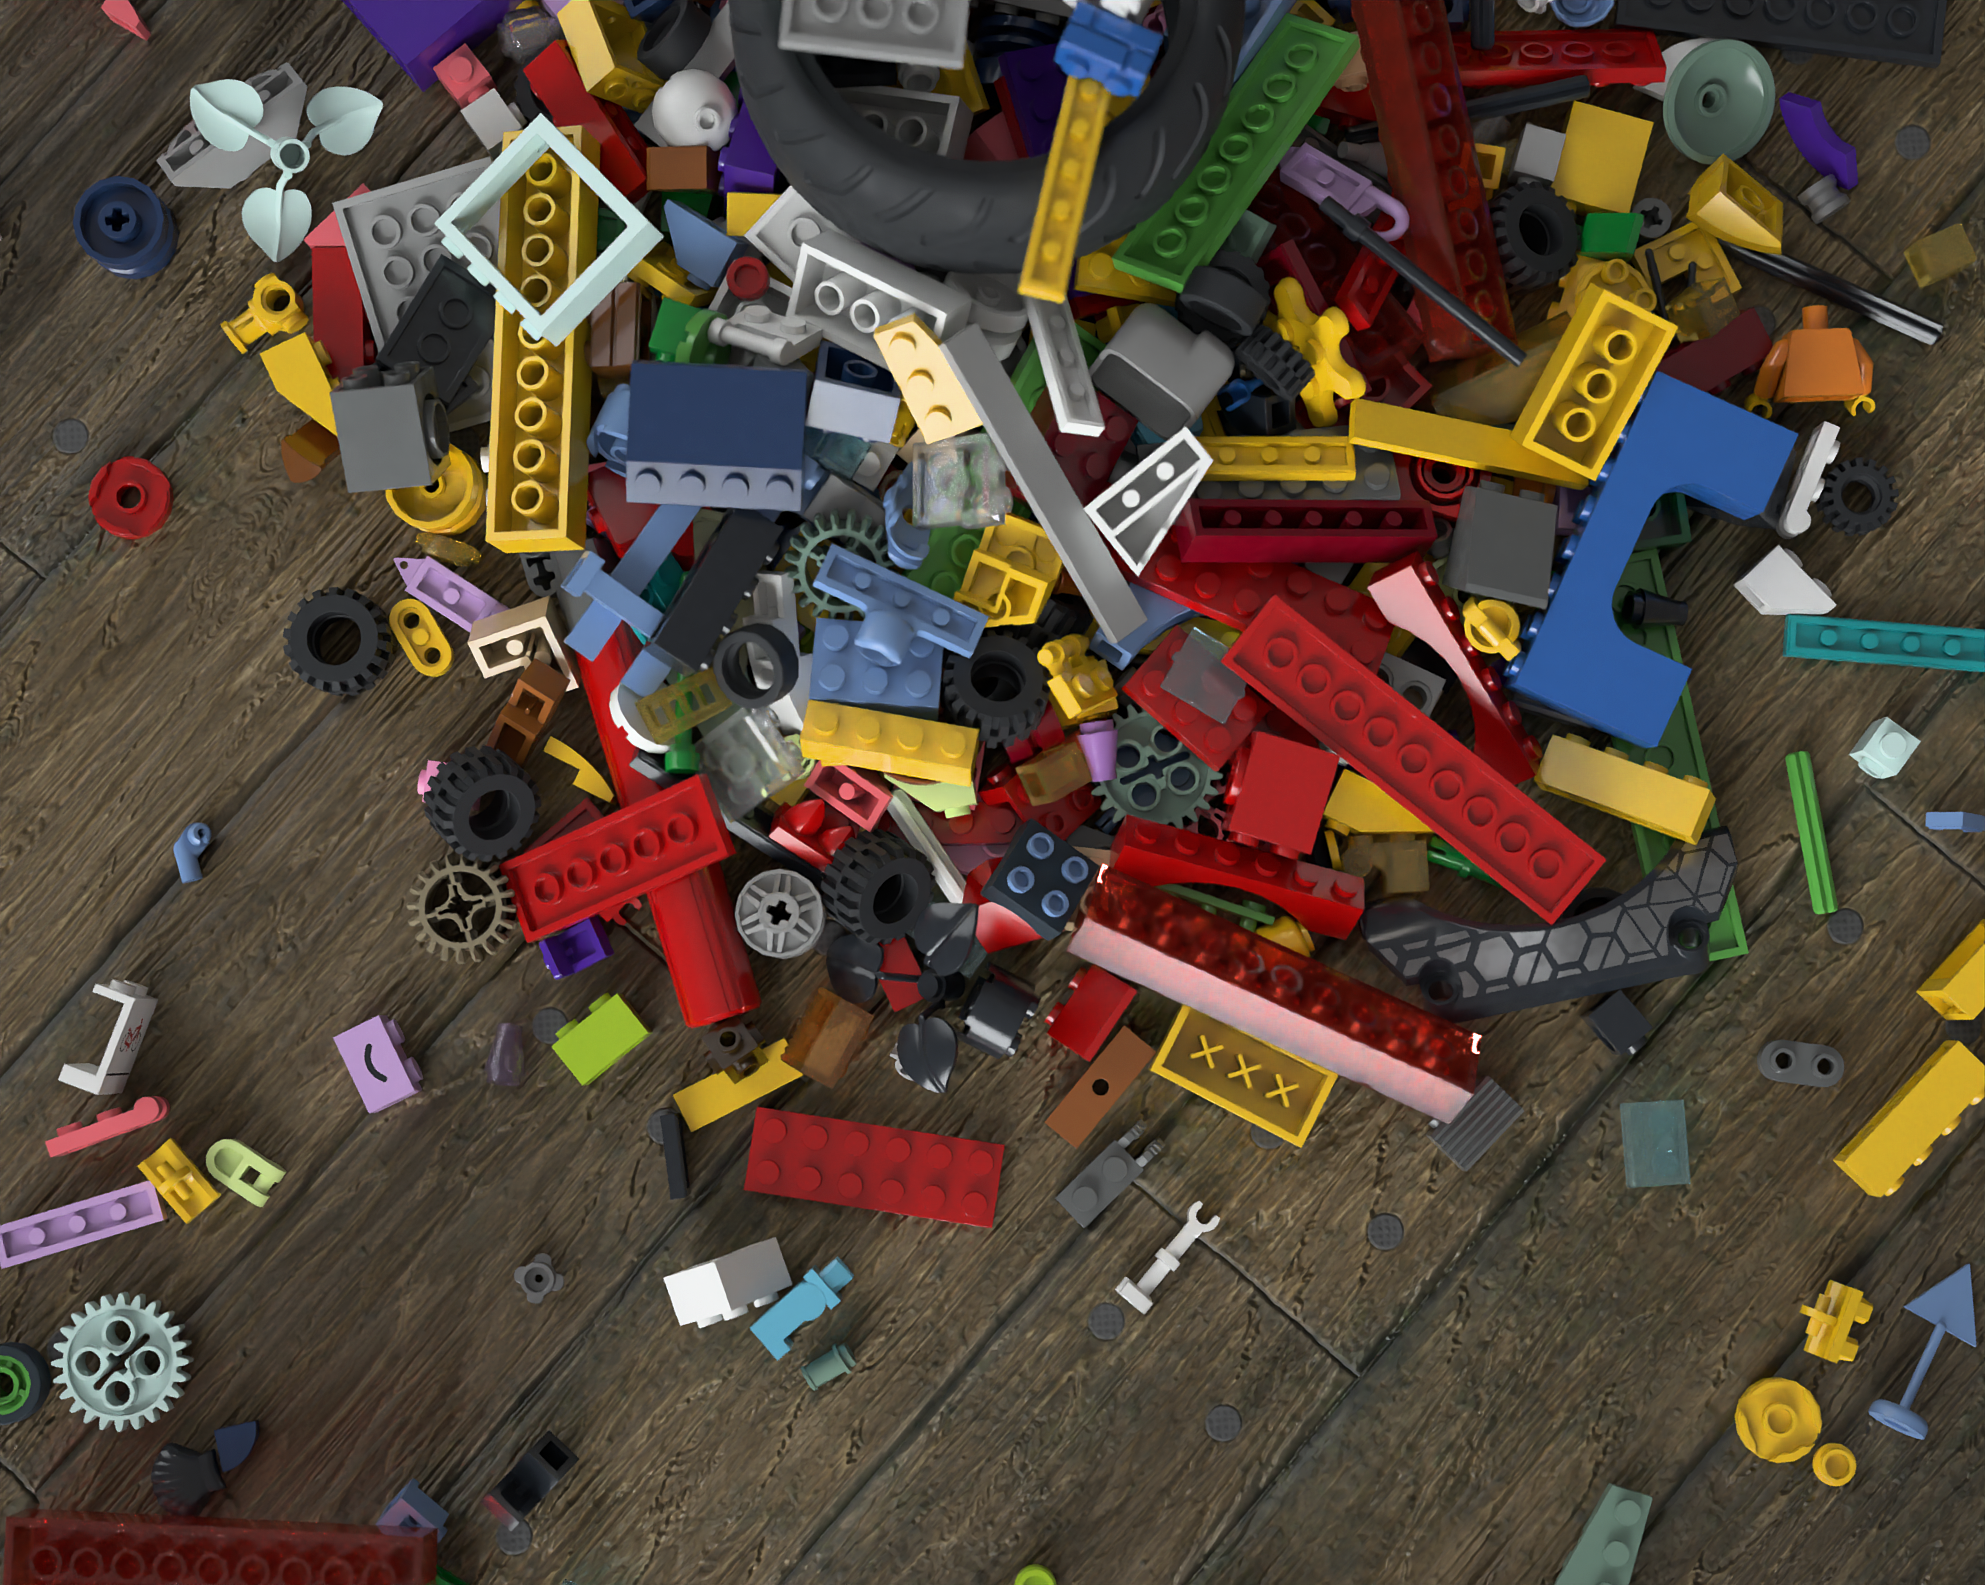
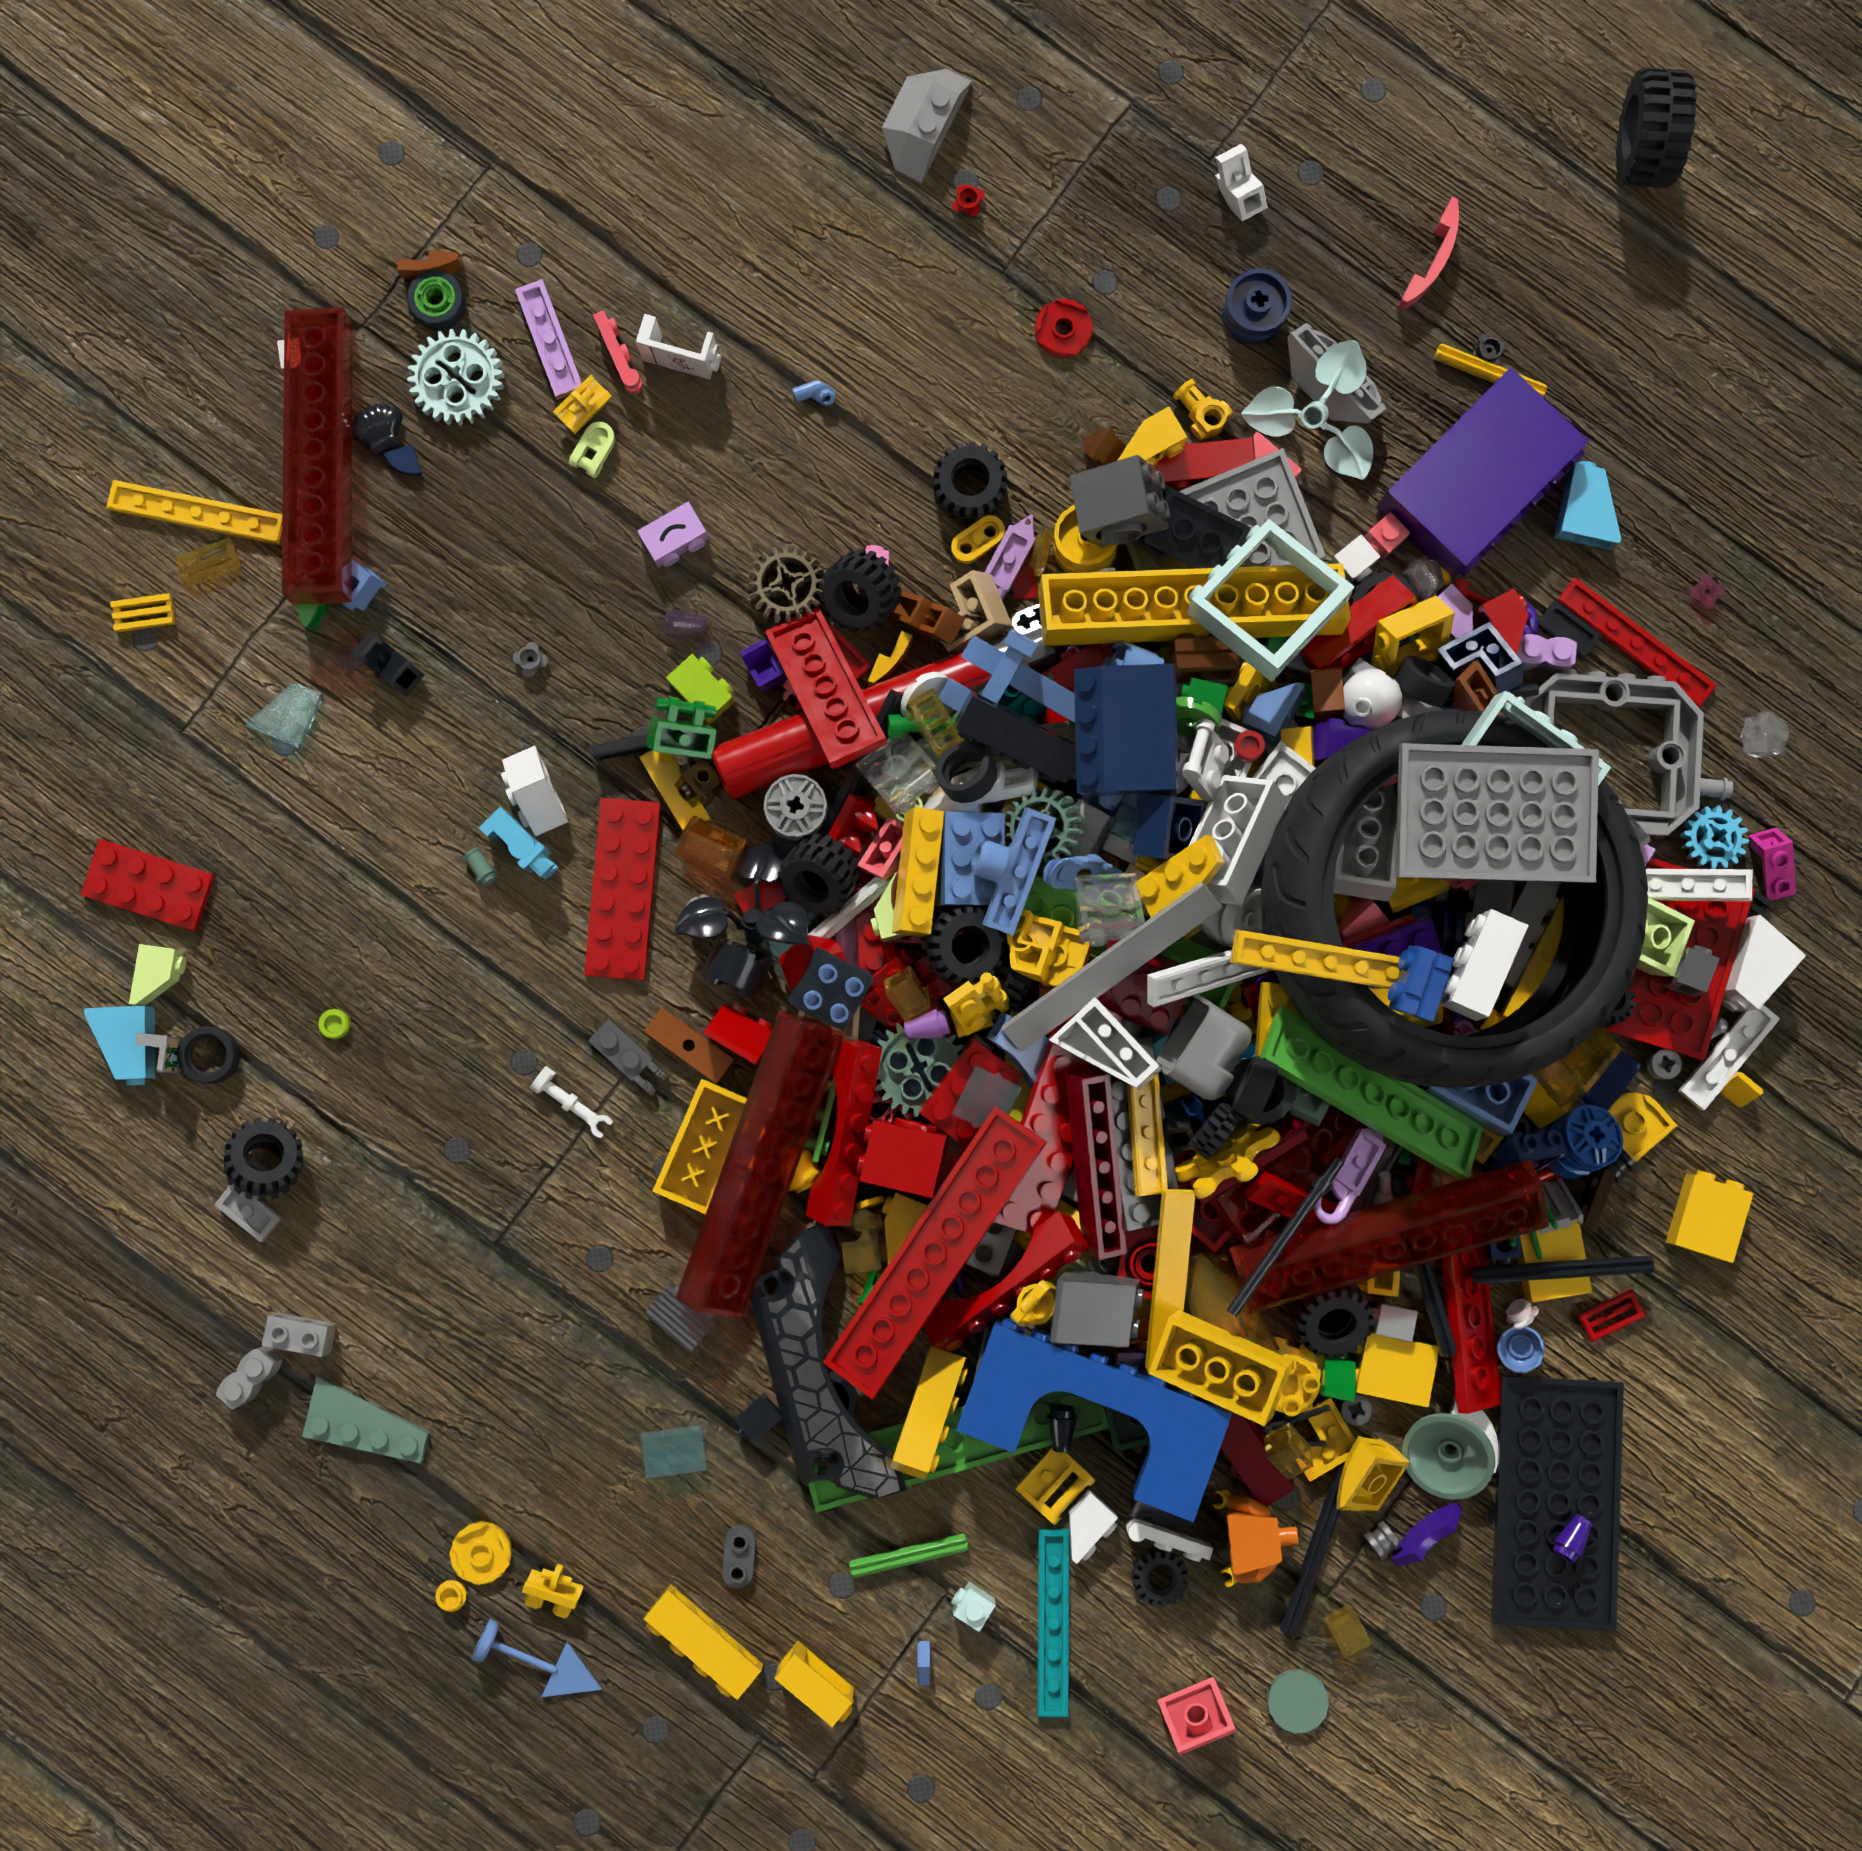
camera: 85 degrees right, 0 degrees up
(489, 577) = (1025, 584): none -> red sticker
(669, 1065) = (678, 736): none -> green brick
(1717, 637) = (1047, 1477): none -> yellow plate

